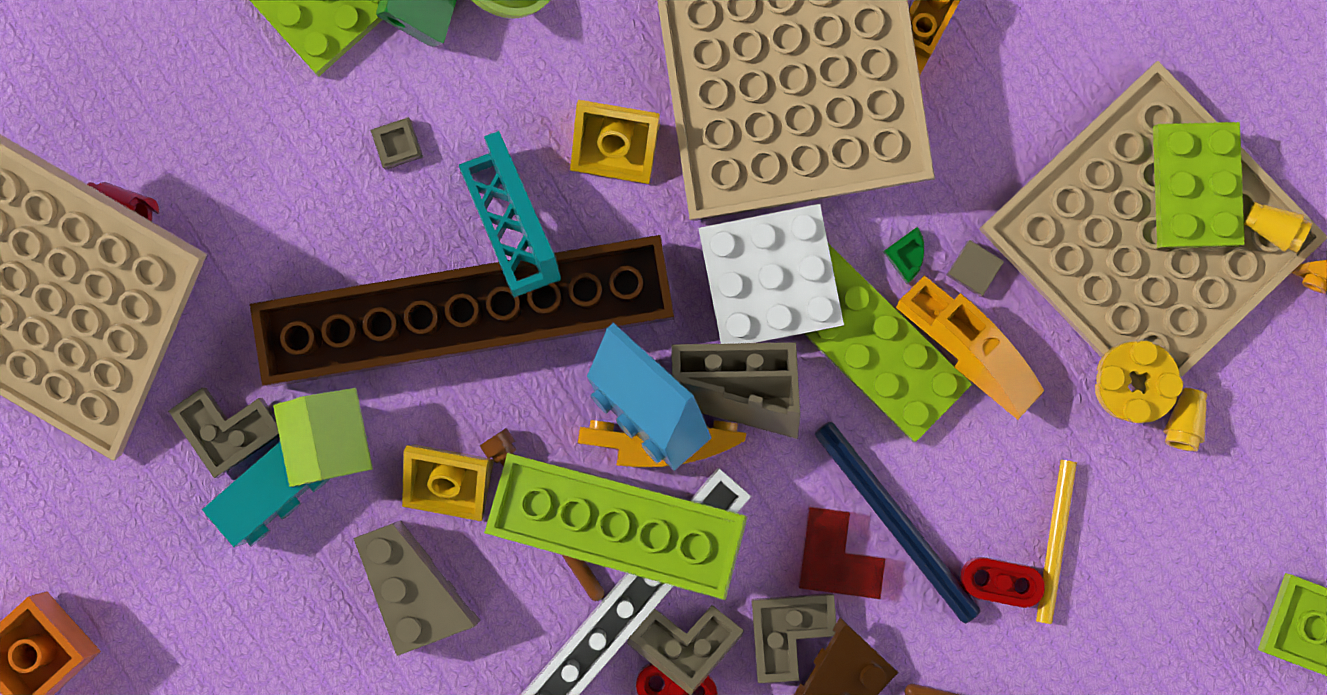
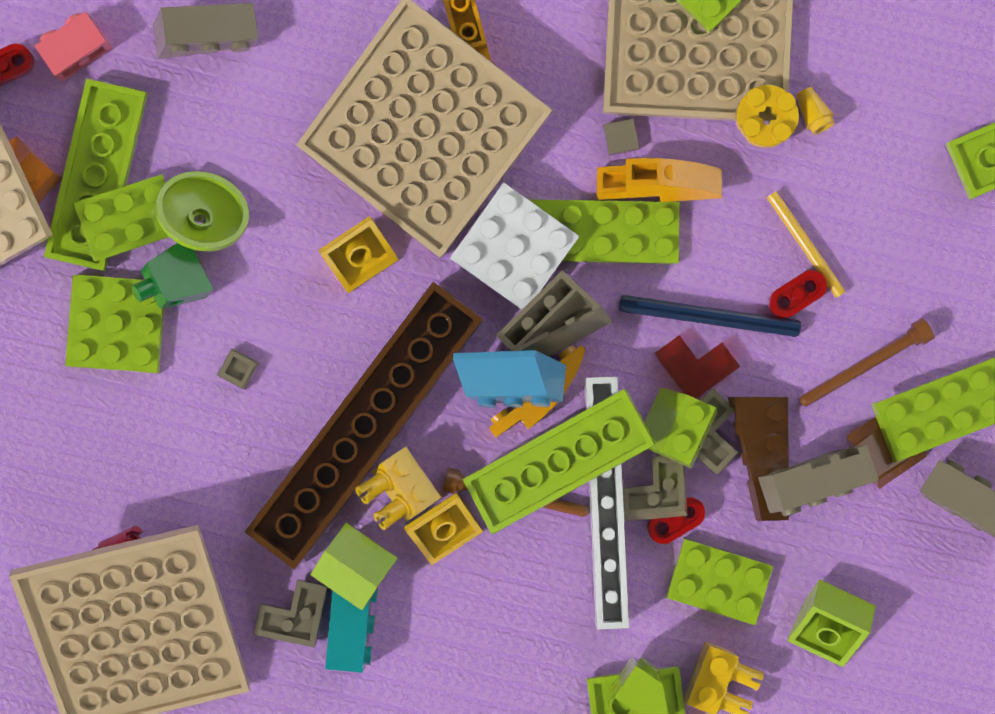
camera: 45 degrees left, 0 degrees up
(411, 590) = (480, 604): dark tan wedge -> none
(447, 405) = (404, 484): none -> yellow brick
(521, 207) = (341, 338): teal fence -> none
(766, 600) = (679, 425): none -> lime slope
(907, 255) = (577, 164): green tile -> none

